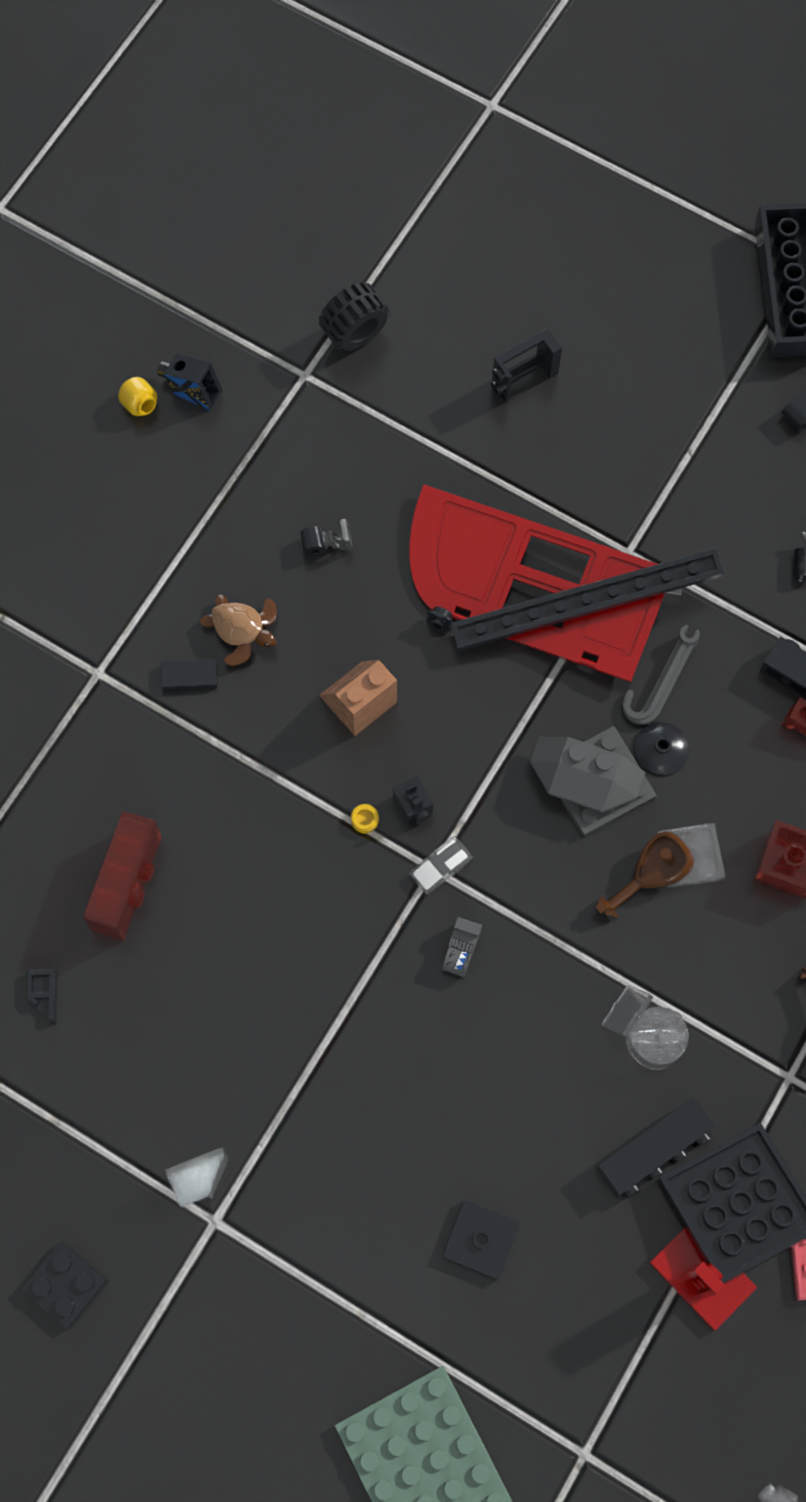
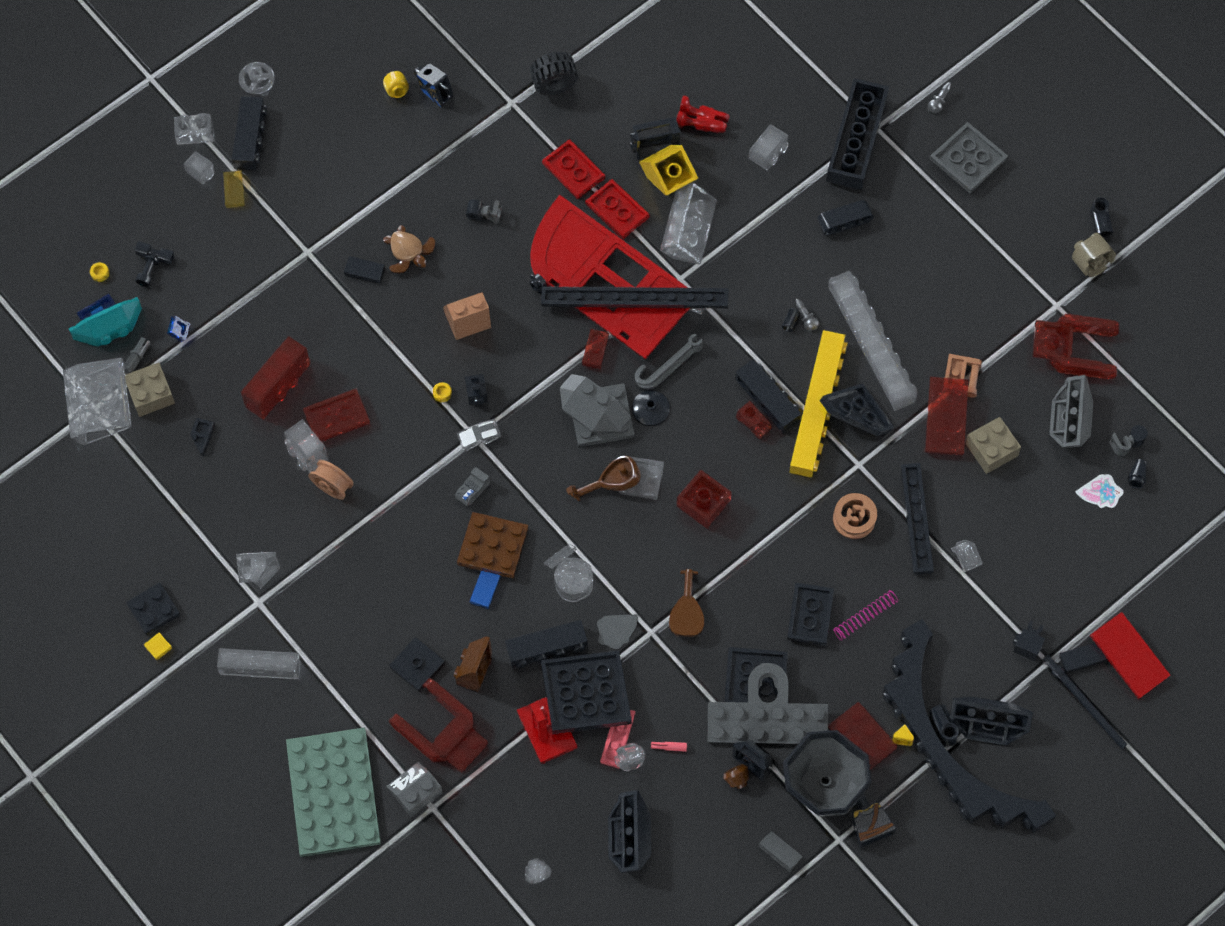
camera: 20 degrees right, 5 degrees down
(92, 1342) = (157, 646): none -> yellow tile
(204, 966) = (305, 446): none -> clear brick
(228, 902) = (336, 415): none -> clear red plate
(252, 1321) = (258, 663): none -> clear brick
(258, 1004) = (331, 479): none -> nougat wheel
(426, 442) = (573, 169): none -> red tile
(507, 480) = (617, 209): none -> red tile
(522, 1023) = (492, 545): none -> reddish brown plate
(534, 1090) = (485, 589): none -> blue tile
(550, 1436) = (415, 789): none -> dark grey slope
(555, 688) = (595, 349): none -> clear red plate
(562, 403) = (669, 169): none -> yellow slope
(567, 1217) = (474, 664): none -> reddish brown slope
(581, 318) = (707, 118): none -> red piece
(586, 1344) = (457, 741): none -> clear red plate
(613, 472) = (688, 224): none -> clear slope
(678, 333) = (768, 147): none -> clear brick
(740, 1090) = (616, 629): none -> dark grey sticker

